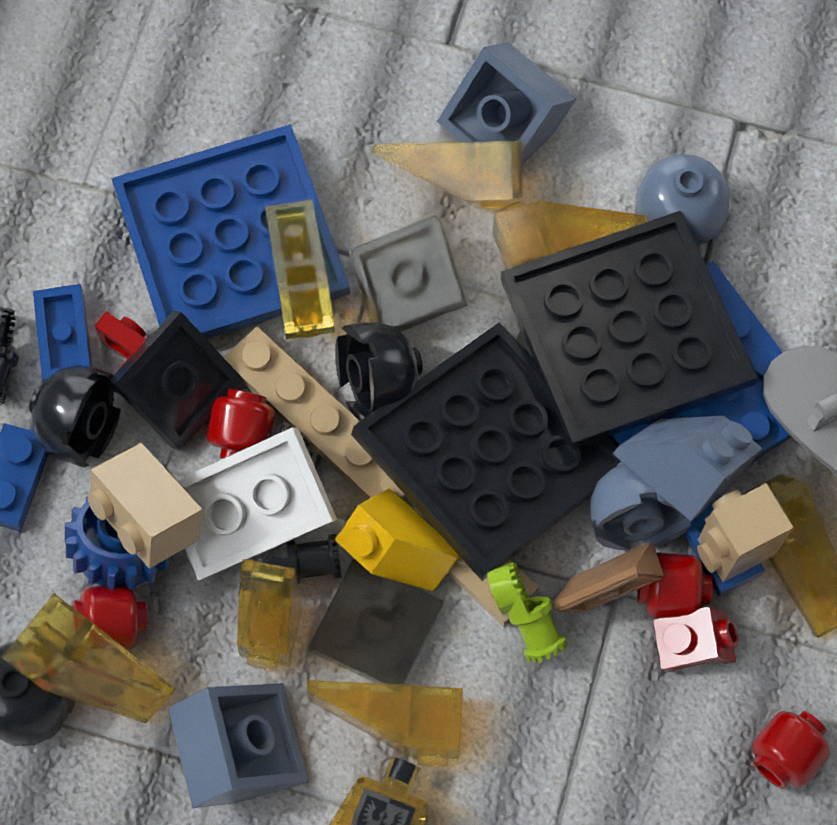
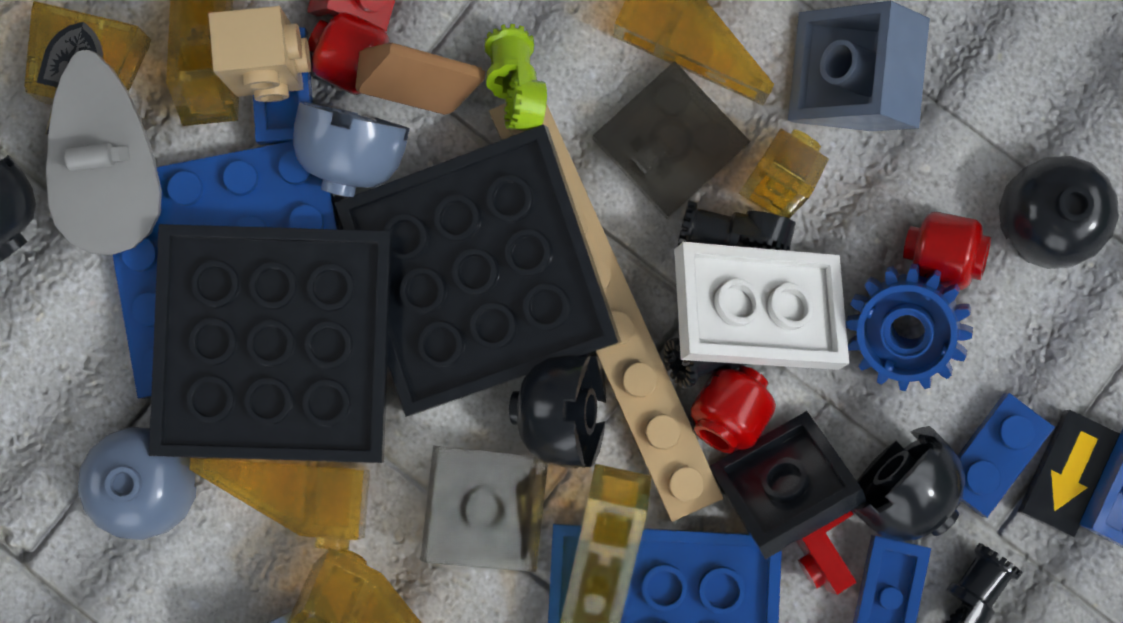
camera: 155 degrees left, 15 degrees up
(81, 662) = (1006, 209): clear yellow slope -> none
(144, 505) = (879, 335): tan brick -> none
(397, 542) = (620, 209): yellow slope -> none
(690, 459) = (276, 154): sand blue slope -> none

